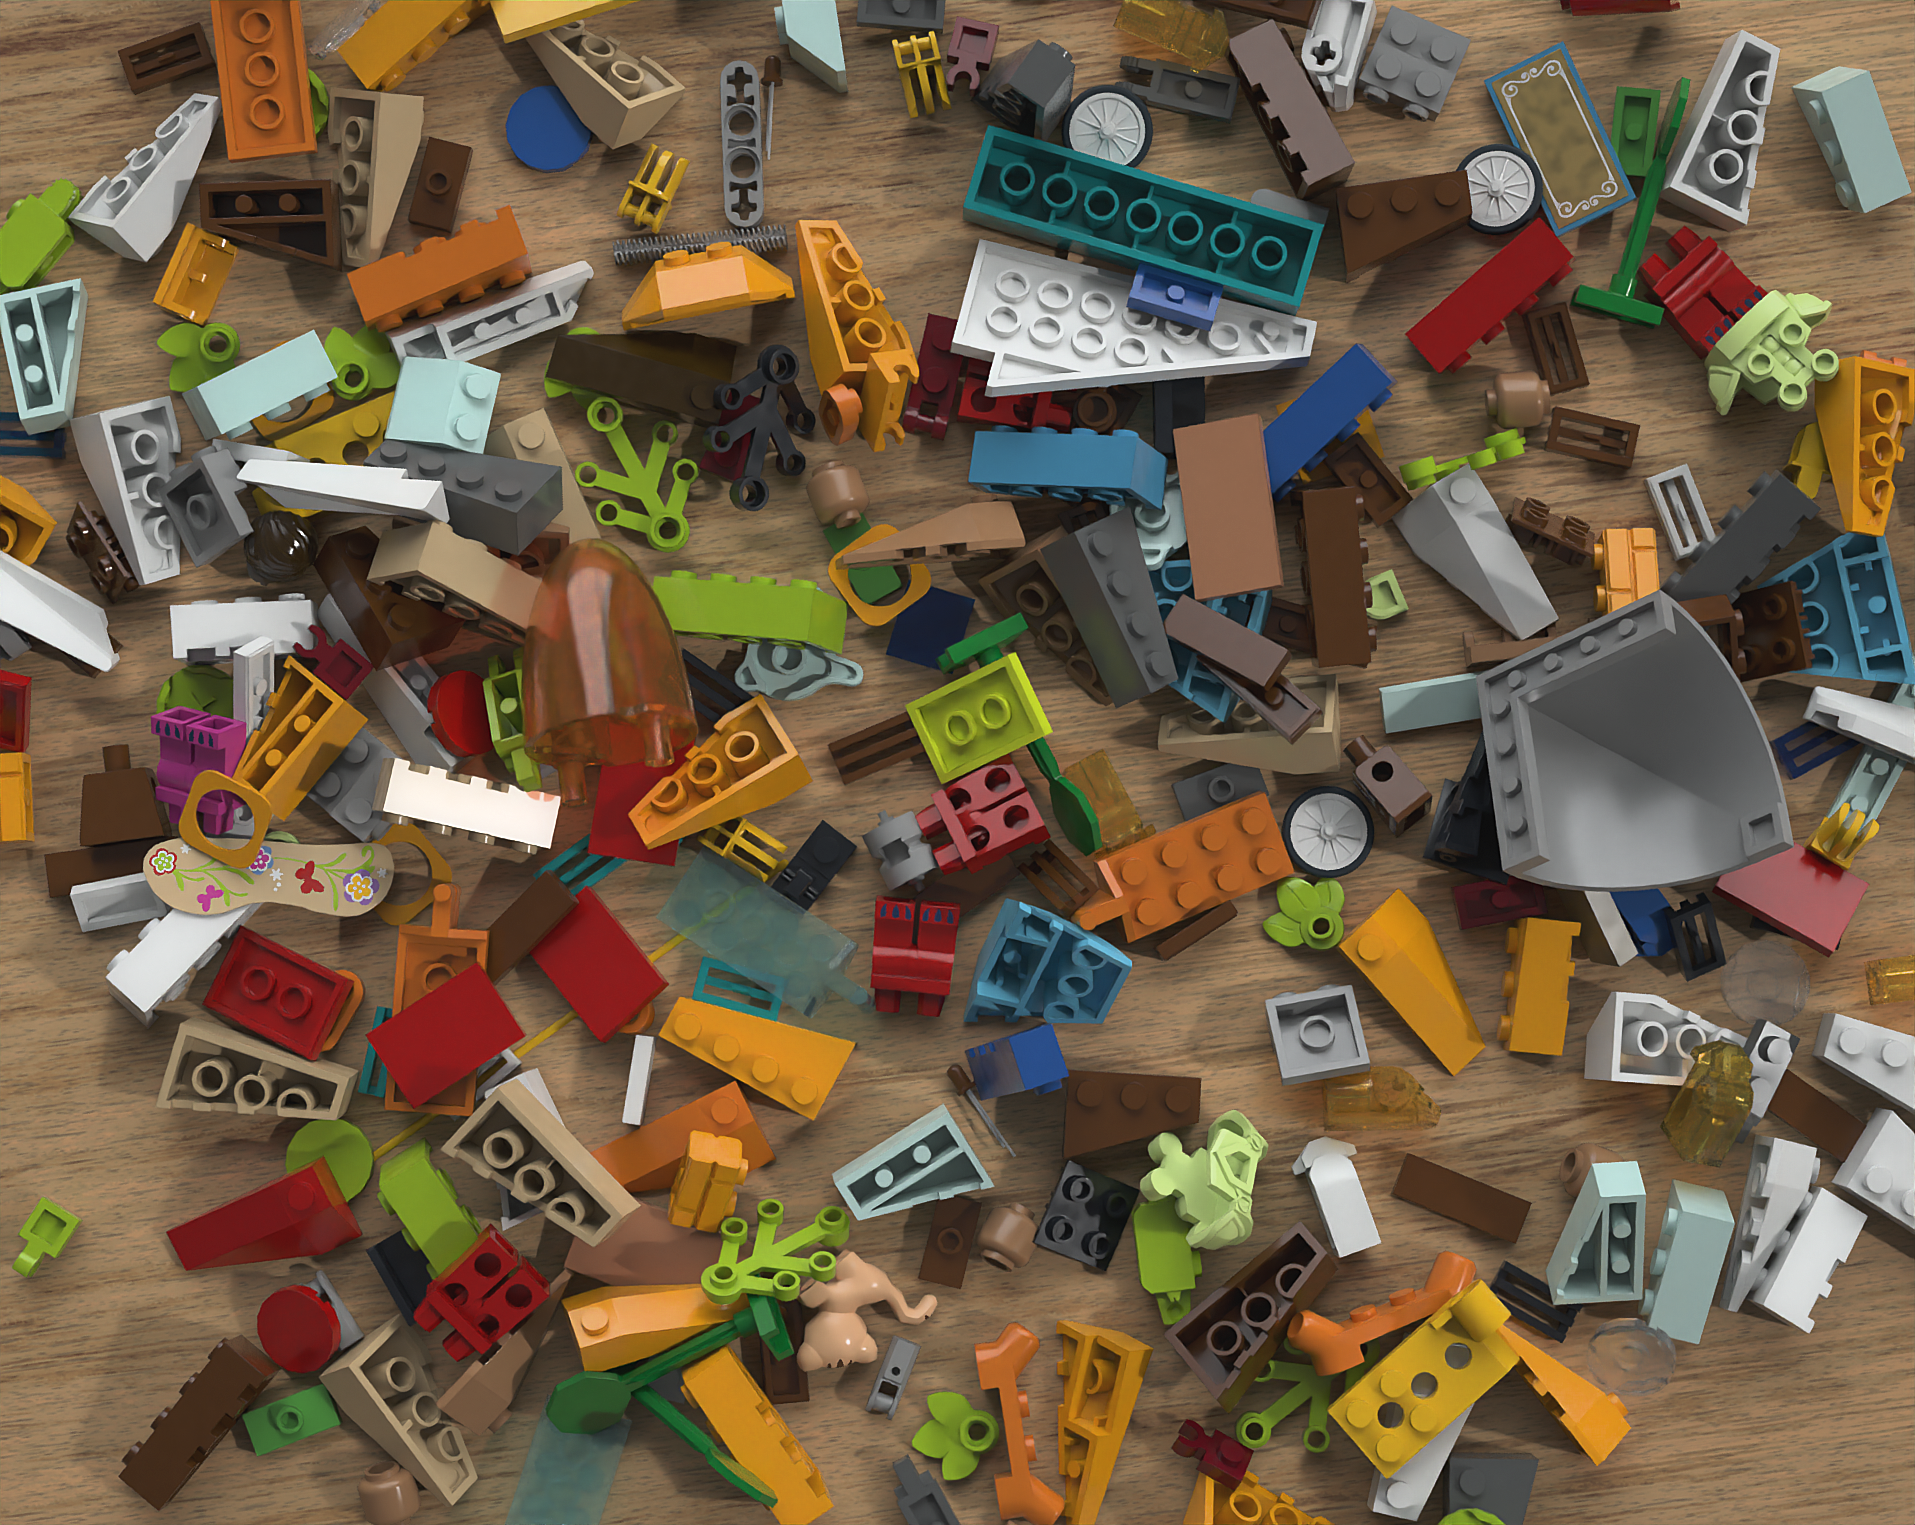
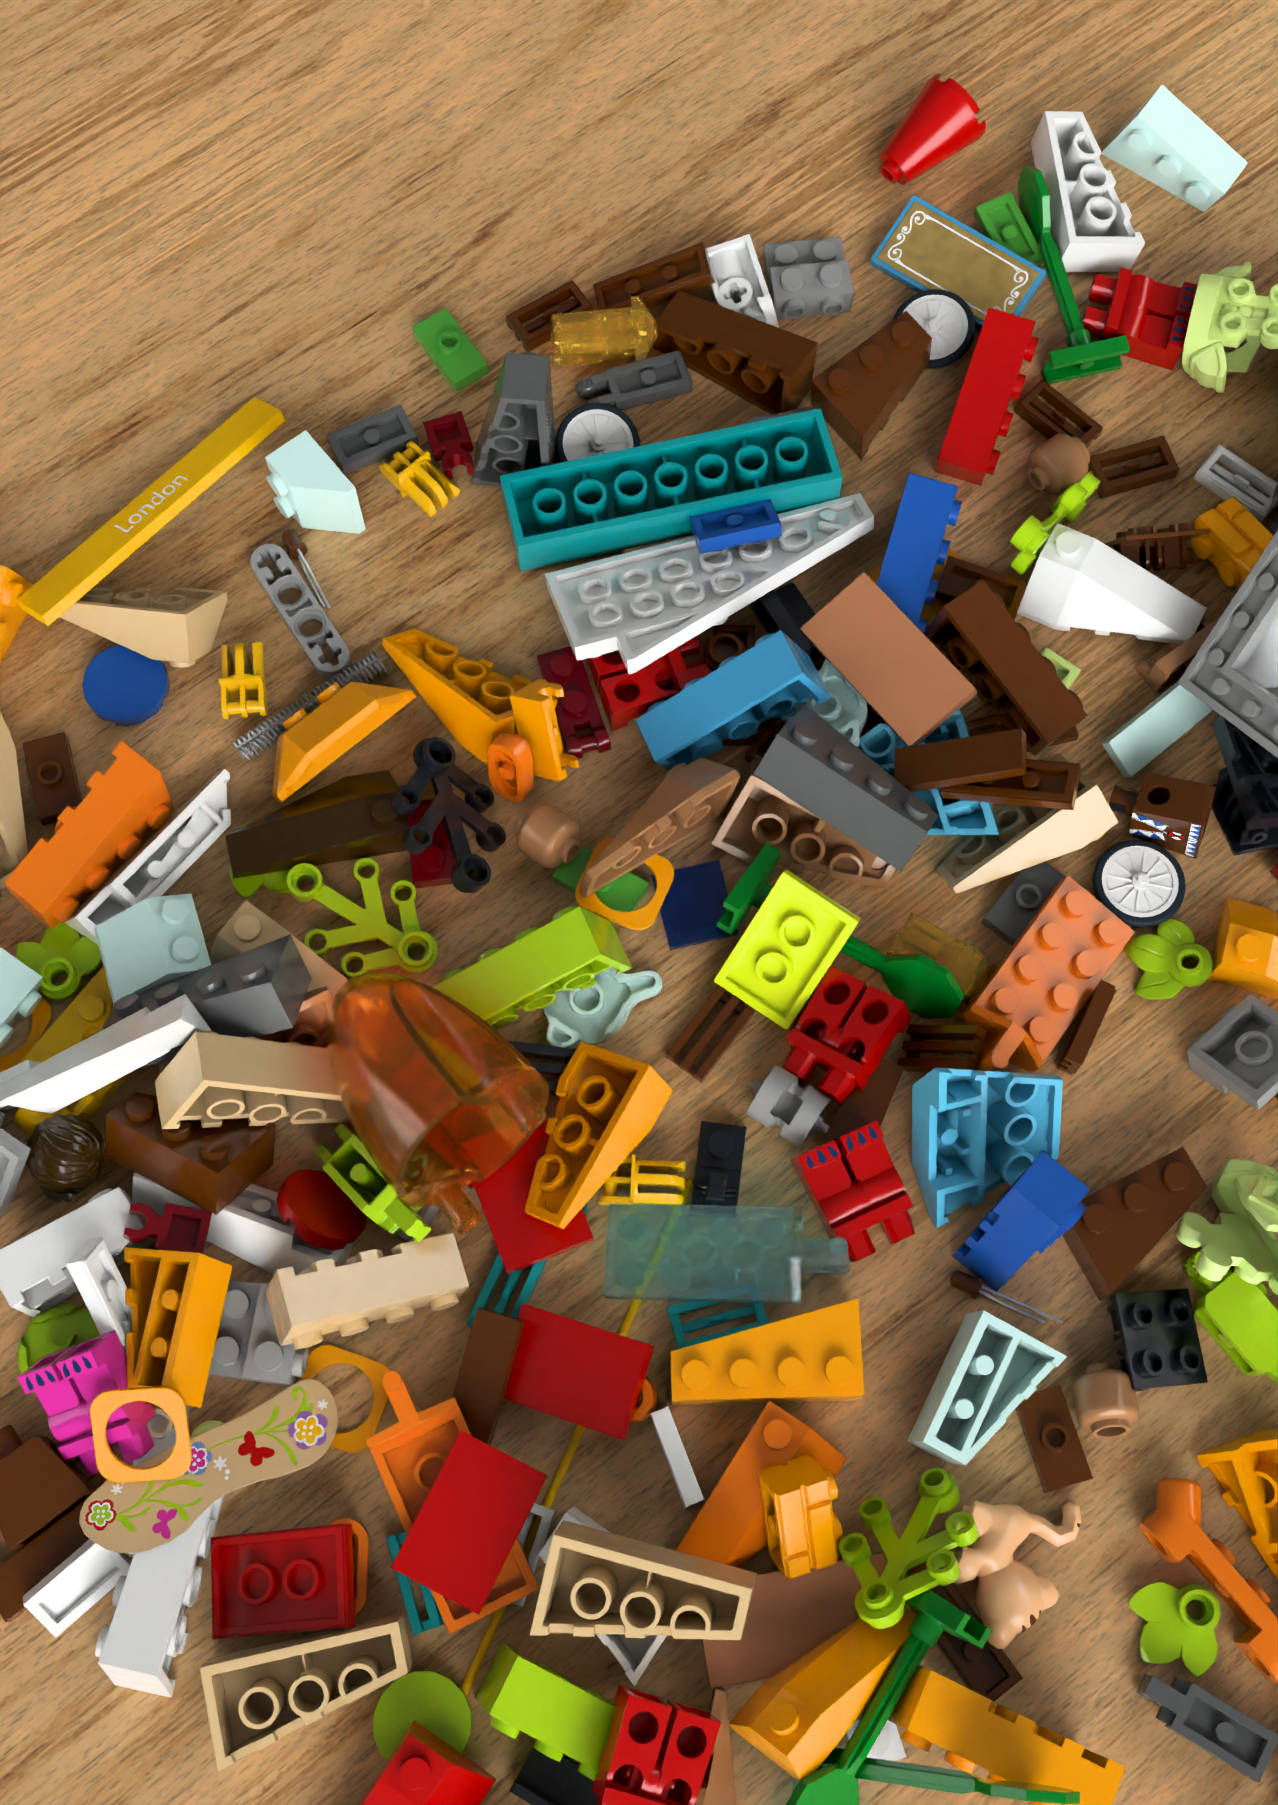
camera: 30 degrees left, 15 degrees down
(894, 1370) = (1083, 1596): light grey bar -> none

